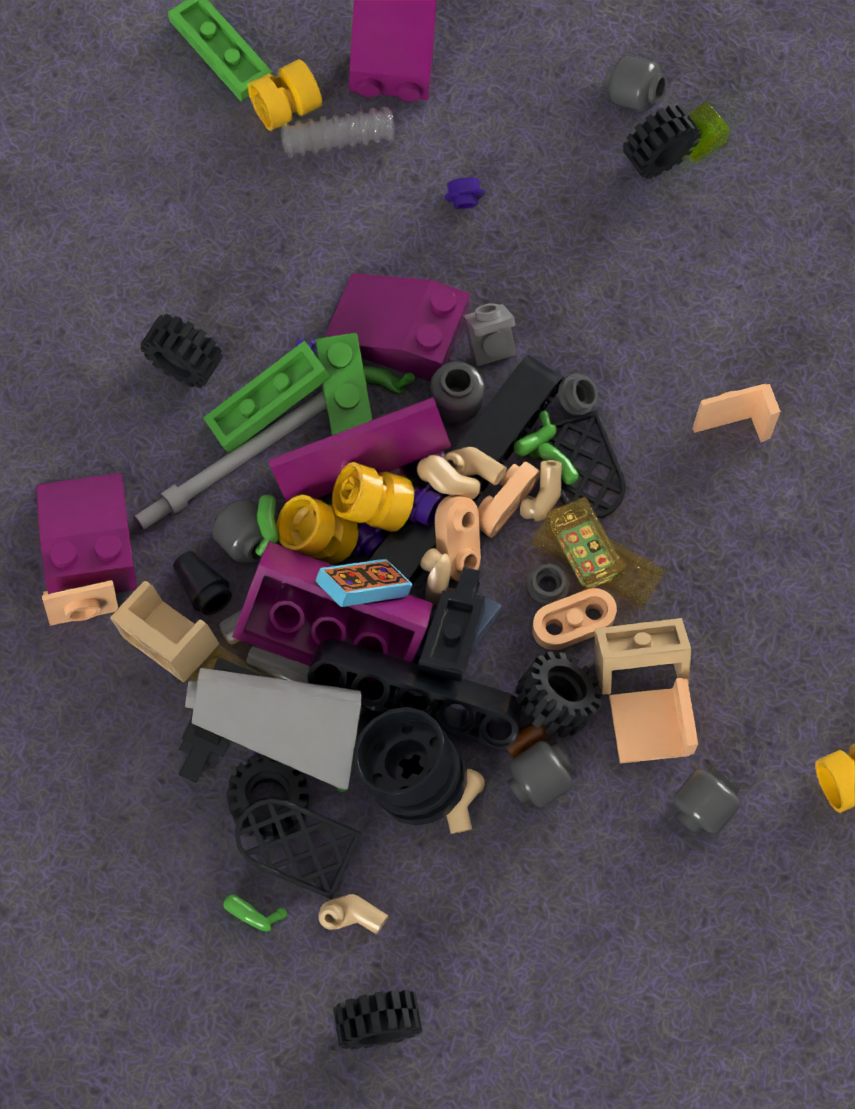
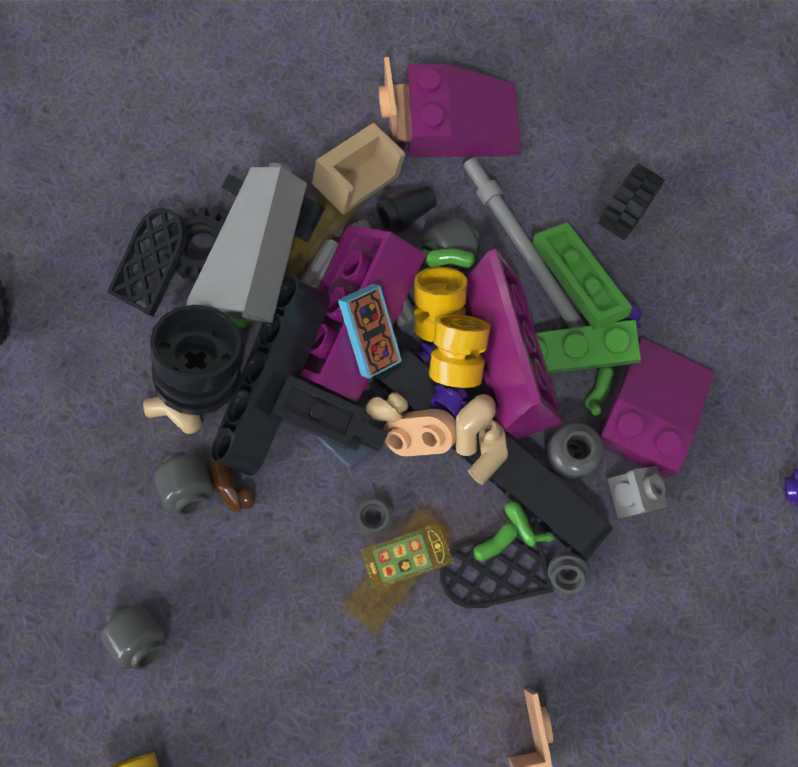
camera: 100 degrees right, 10 degrees up
(250, 915) = (105, 225): bright green piece -> none
(351, 910) = (93, 305): tan arm -> none
(516, 485) = (474, 499): light nougat plate -> none
(548, 495) = (464, 529): tan arm -> none
(571, 682) = (259, 530): black tyre -> none
(572, 618) = (333, 536): light nougat plate -> none
(641, 646) = (285, 594): tan panel -> none
(654, 723) = (221, 597): light nougat piece -> none

